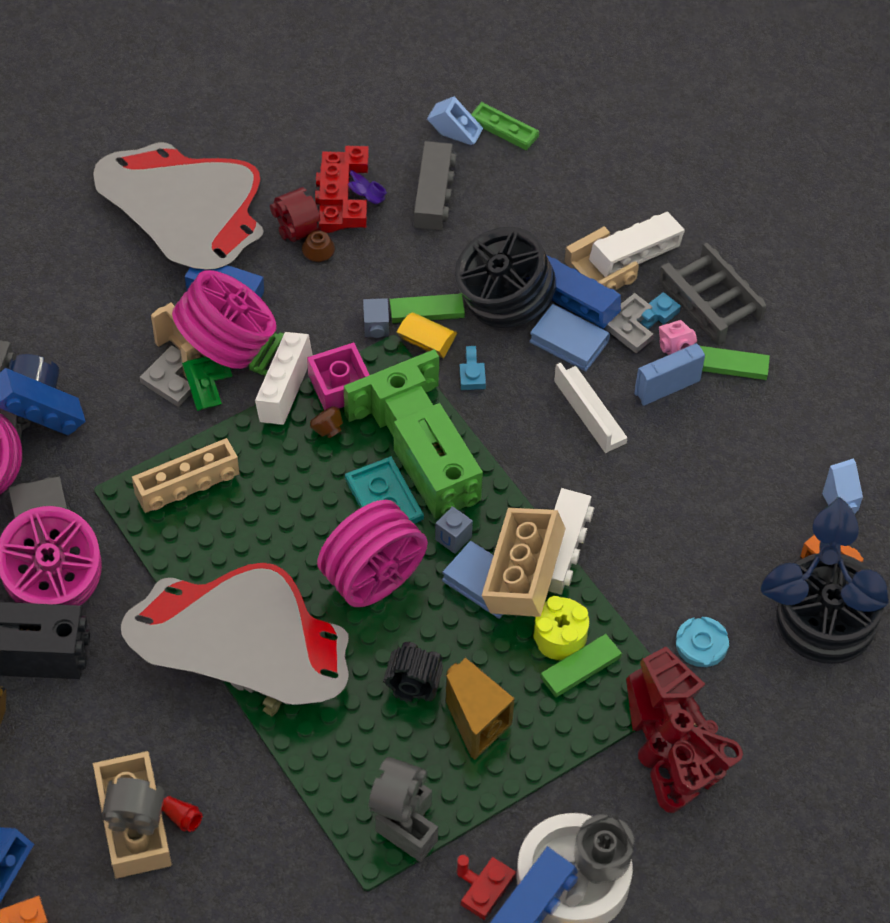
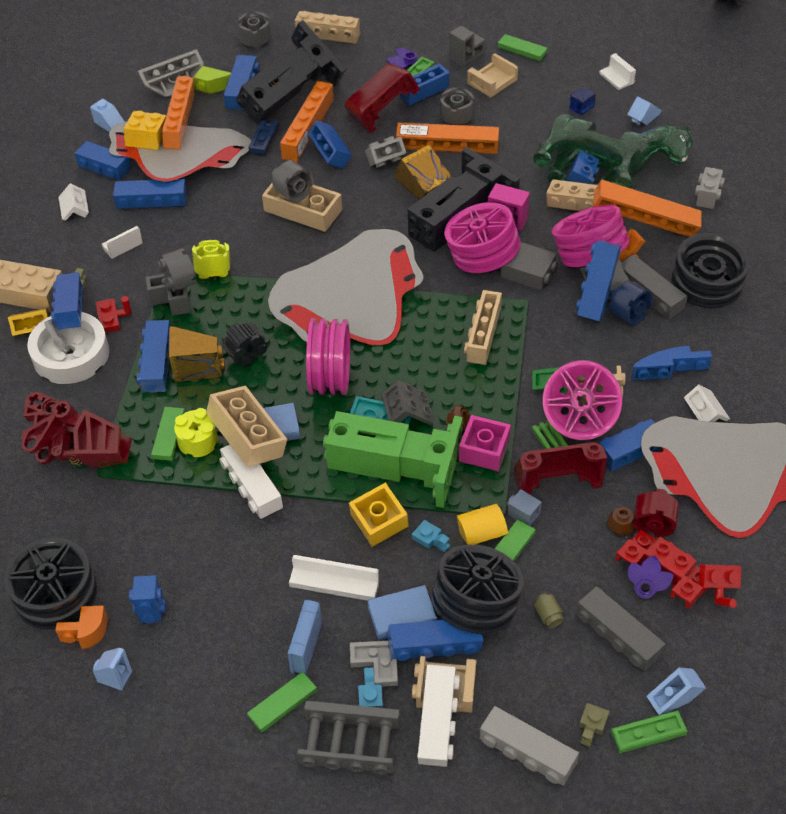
camera: 135 degrees right, 5 degrees down
(88, 315) = (666, 361): none -> blue slope
(121, 257) = (705, 405): none -> white panel
(183, 814) = (284, 225): red cone -> none
(283, 378) = (508, 409): white brick -> none
(306, 312) = (584, 459): none -> dark red windscreen
(327, 143) = (719, 578): none -> red plate
(331, 831) = (211, 259): none -> neon yellow brick
(354, 472) = (404, 401): none -> dark grey bracket
(453, 530) = (315, 428): sand blue brick -> none
(462, 237) = (549, 610): none -> olive brick
(497, 410) = (378, 514): none -> yellow brick
(504, 760) = (155, 356): none -> blue brick
(532, 160) = (593, 722): none -> olive plate
(597, 181) = (528, 746): none -> light grey brick
(603, 848) = (52, 343): dark grey brick -> none
(676, 337) = (329, 671): bright pink brick -> none
(708, 646) = (112, 516): medium azure tile -> none
(762, 514) = (147, 599): none -> blue brick
(832, 527) = (66, 581): dark blue plant -> none

